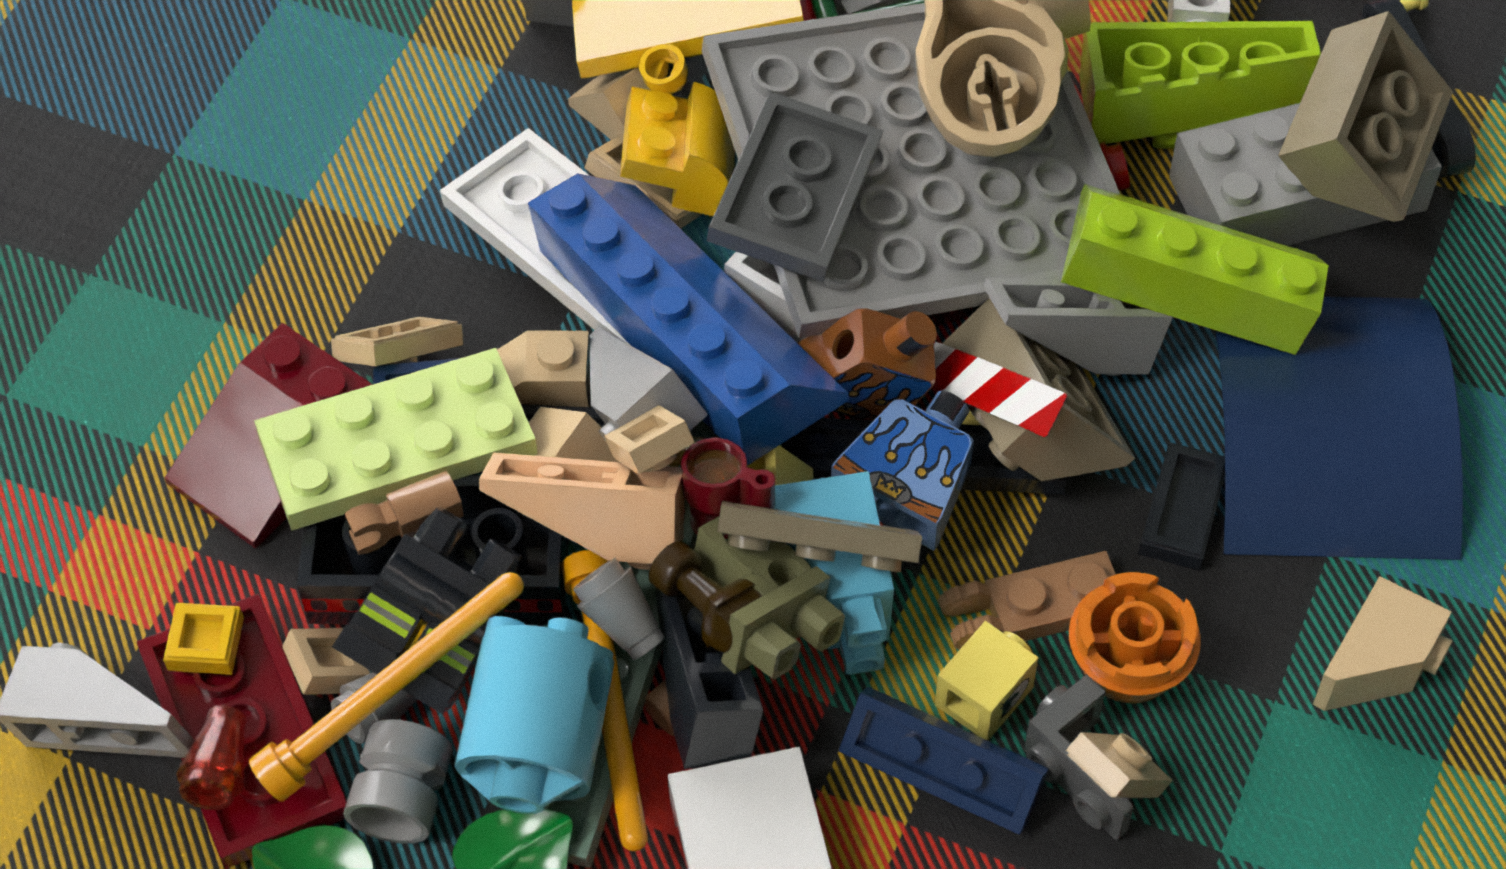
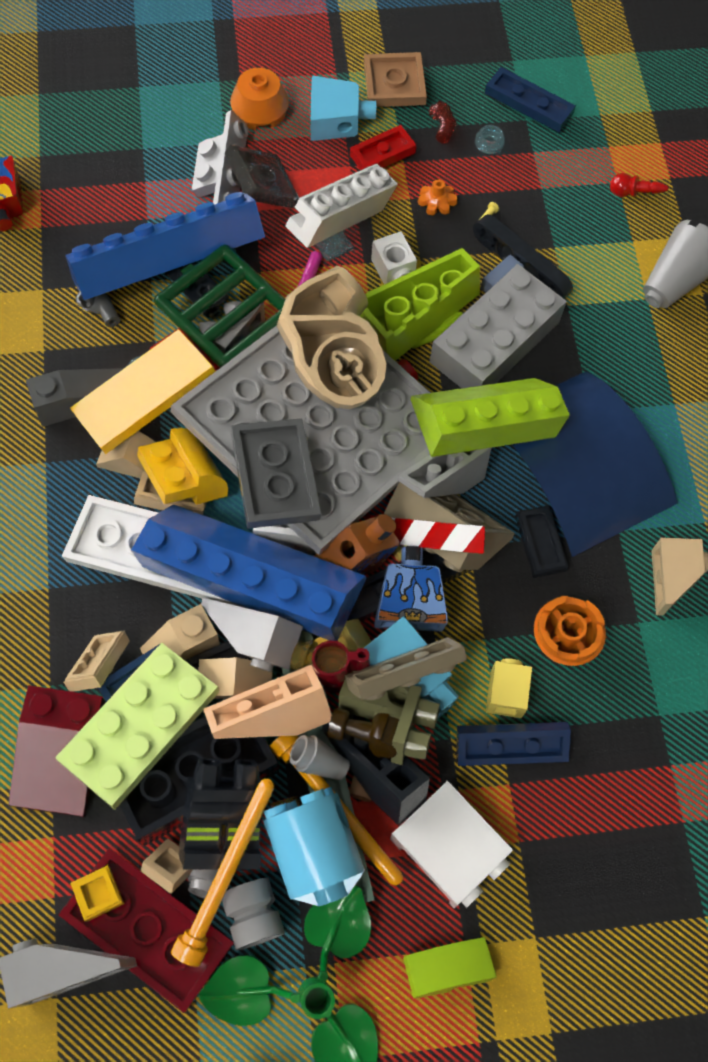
camera: 35 degrees left, 10 degrees up
(215, 762) = (151, 963): clear red cone -> none
(402, 512) = (175, 767): medium nougat bar -> none
(650, 440) = (288, 662): tan plate -> none
(655, 65) = (145, 433): yellow hinge -> none
(1027, 601) = (504, 629): medium nougat hinge -> none
(1049, 733) = (555, 689): dark grey bracket -> none
(1118, 765) = (602, 704): tan plate -> none
(1367, 119) = (525, 294): dark tan slope -> none

